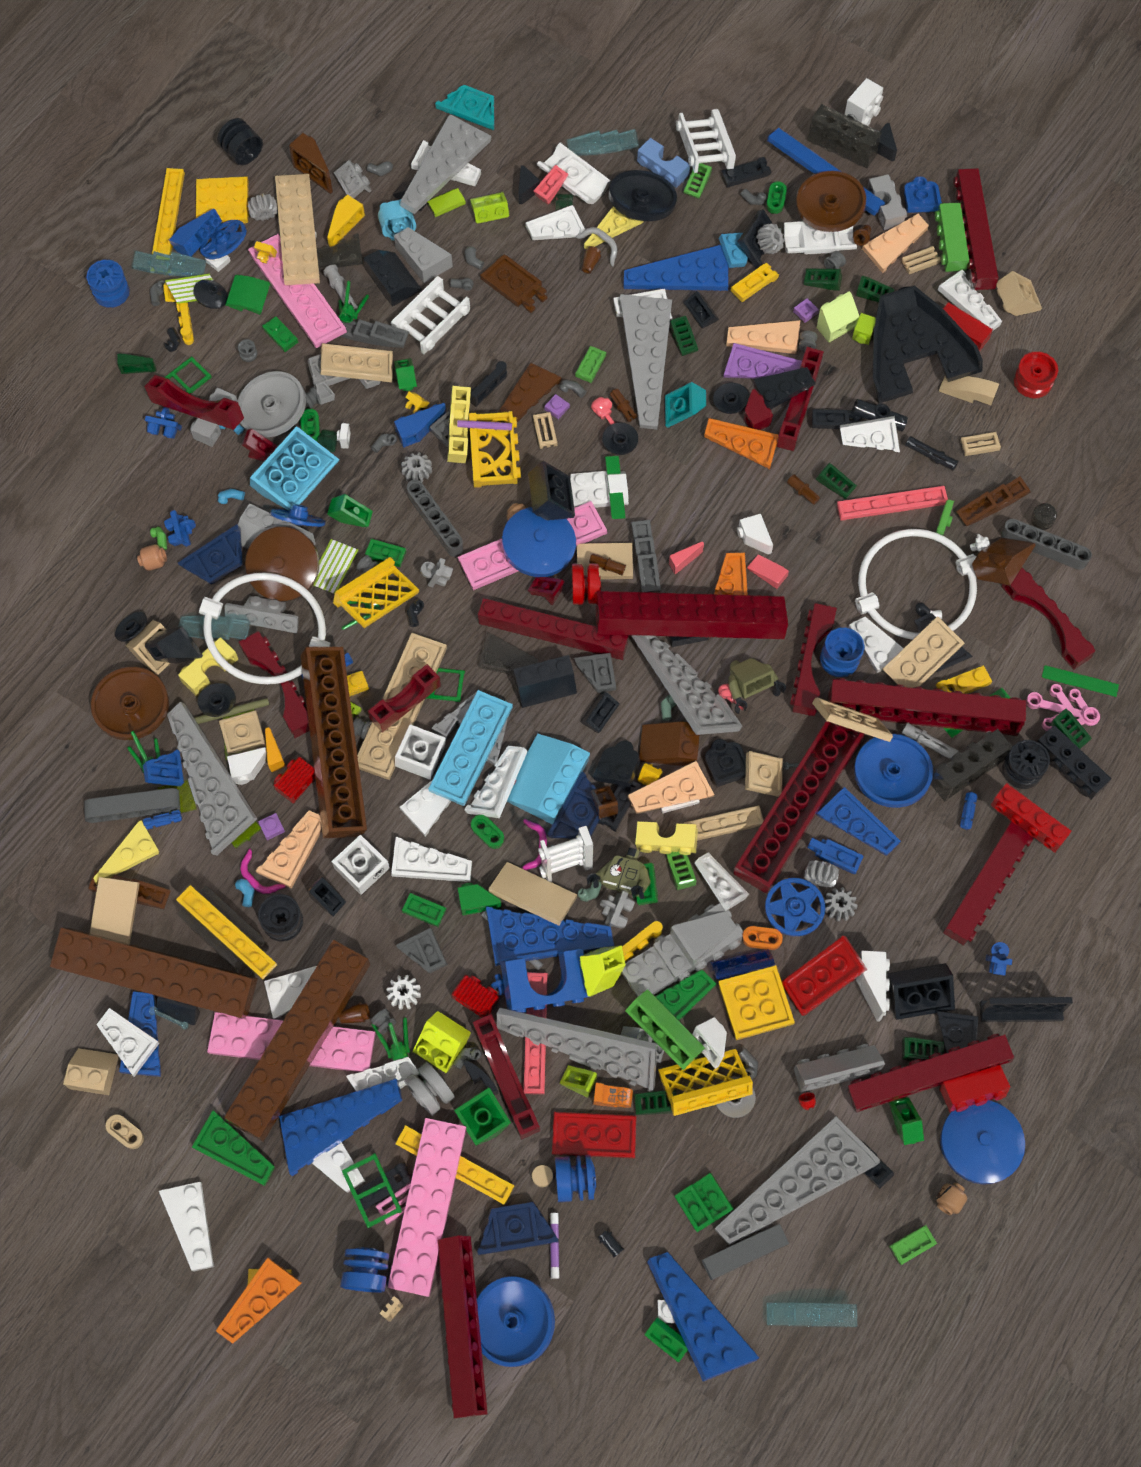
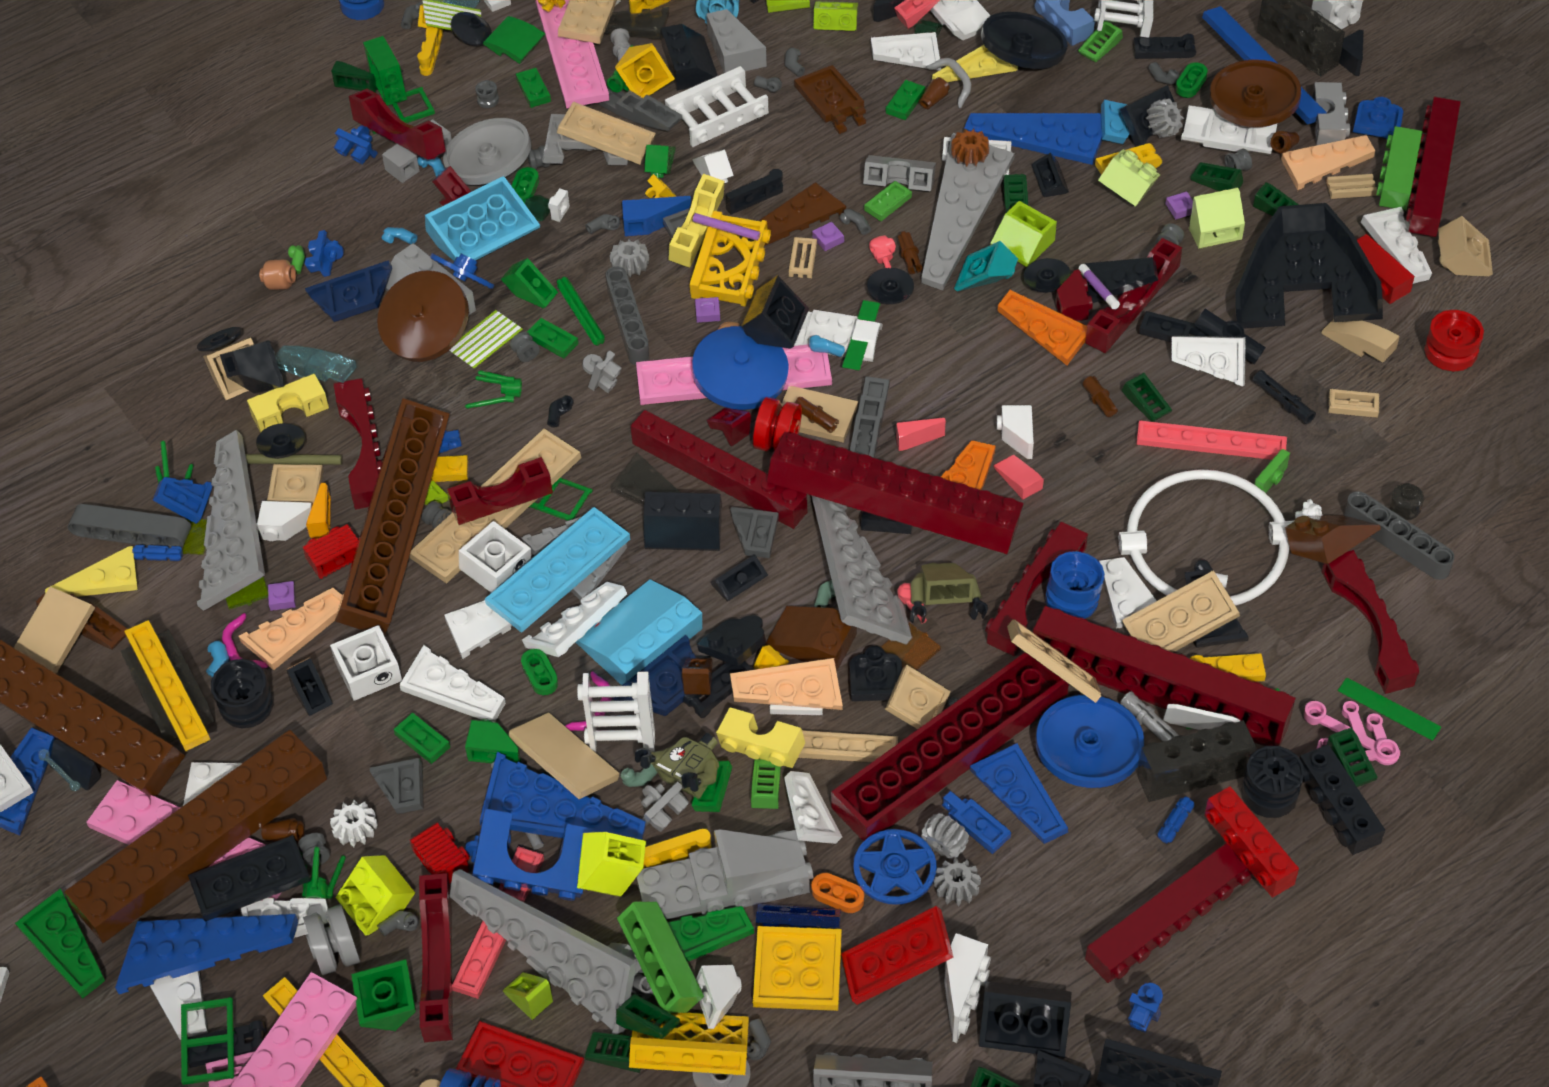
camera: 20 degrees right, 15 degrees down
(129, 702) = (182, 413): reddish brown dish -> none
(162, 352) = (385, 69): none -> green window
(174, 340) = (410, 65): black arm -> none
(212, 608) = (317, 335): white piece -> none
(264, 614) = (380, 366): light grey bracket -> none
(348, 1060) = (249, 878): none -> black tile
(363, 583) = (515, 359): yellow fence -> none
(365, 300) = (643, 70): none -> yellow slope
(397, 523) = (580, 311): none -> green axle
(449, 370) = (715, 165): none -> white slope
(477, 1075) = (402, 949): black slope -> none
(492, 496) = (707, 309): none -> medium lavender plate
(570, 270) = (905, 100): none -> green plate
(579, 339) = (885, 170): none -> light grey arch
(593, 505) = (823, 345): none -> dark azure arm
(612, 1096) = (561, 1023): orange leg -> none
(641, 306) = (970, 147): none -> dark orange gear
(666, 1083) = (635, 1009): none -> dark green slope
(703, 367) = (1025, 232): none -> lime slope
(746, 735) = (916, 651): none -> clear orange piece
(756, 363) = (1089, 244): medium lavender wing -> none
(762, 297) = (1129, 176): none -> yellowish green slope
(768, 337) = (1120, 223): light nougat wing -> none
(772, 398) = (1098, 286): none -> medium lavender bar
(864, 329) = (1245, 239): lime brick -> none
(963, 732) = (1195, 718): none -> white piece
(993, 502) = (1345, 471): reddish brown slope -> none

